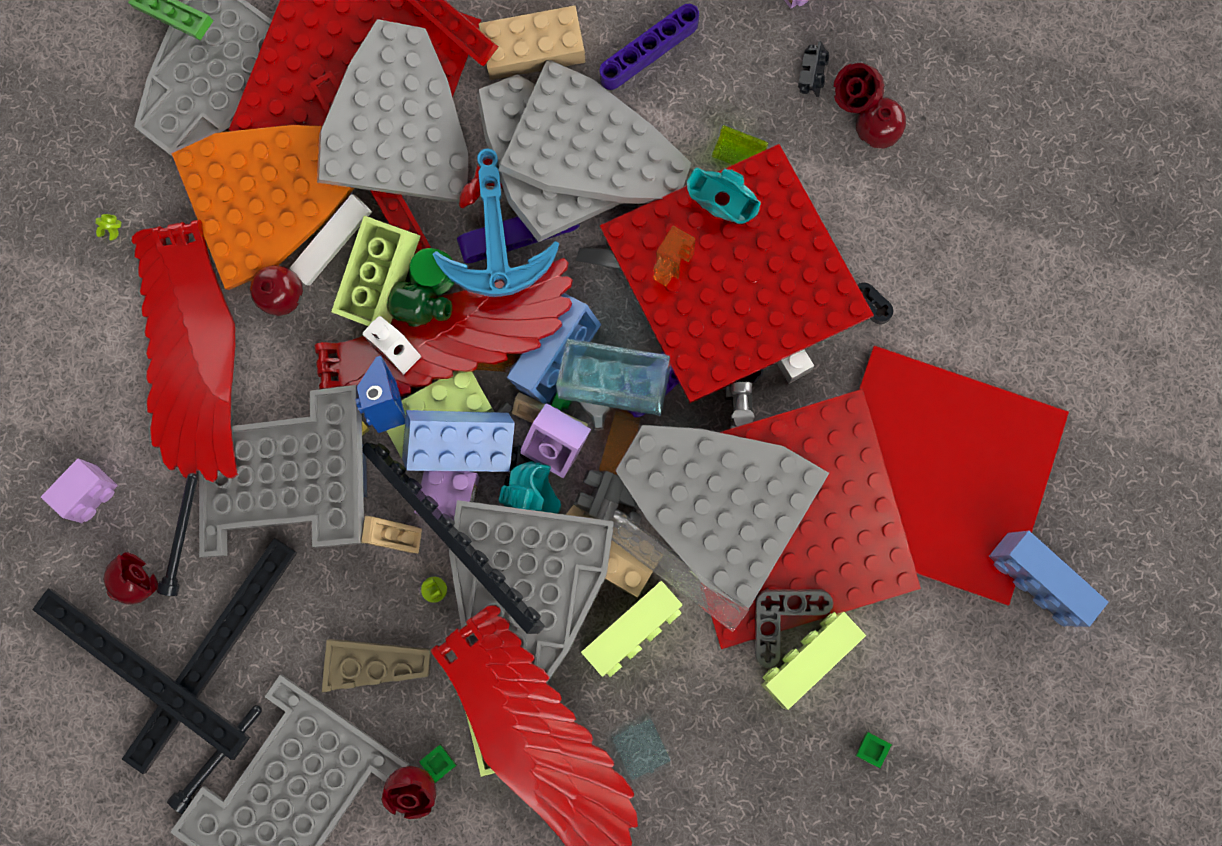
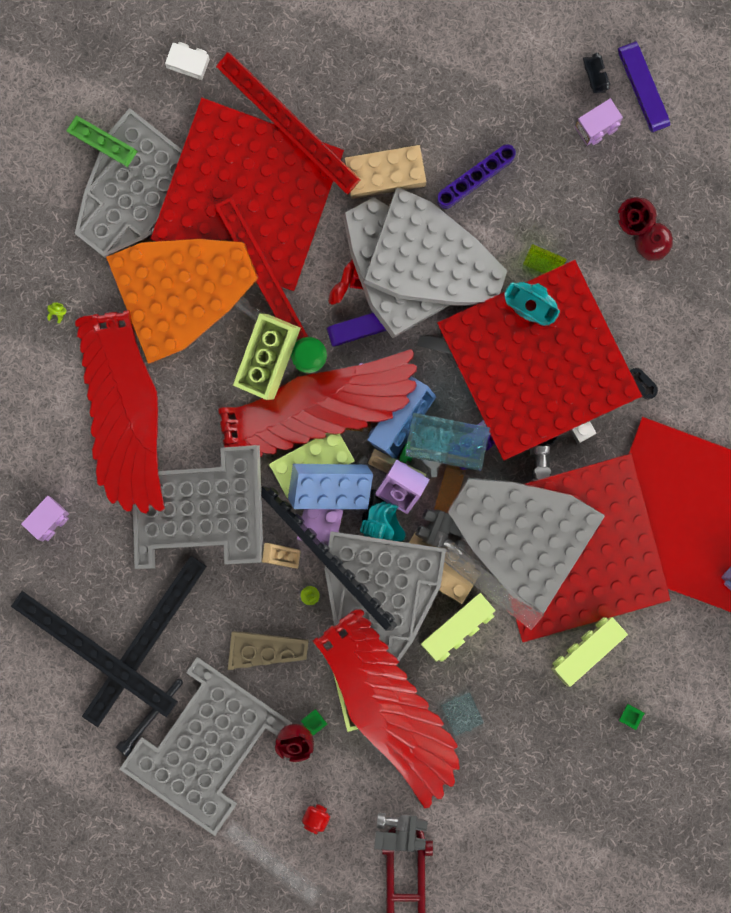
camera: 10 degrees left, 5 degrees up
(127, 580) = (82, 586): dark red cylinder -> none
(169, 584) = (111, 589): black piece -> none
(276, 290) = (188, 365): dark red cylinder -> none
(330, 239) = (230, 328): white tile -> none
(380, 397) = (274, 455): blue slope -> none
(385, 338) = (277, 409): white torso -> none
(394, 120) = (280, 235): light grey piece -> none
(417, 304) = (299, 381): dark green piece -> none
(497, 269) = (361, 355): dark azure piece -> none
(675, 247) = (490, 350): clear orange hips -> none
(773, 615) = (562, 618): dark grey beam -> none
(816, 59) = (605, 189): black hinge -> none

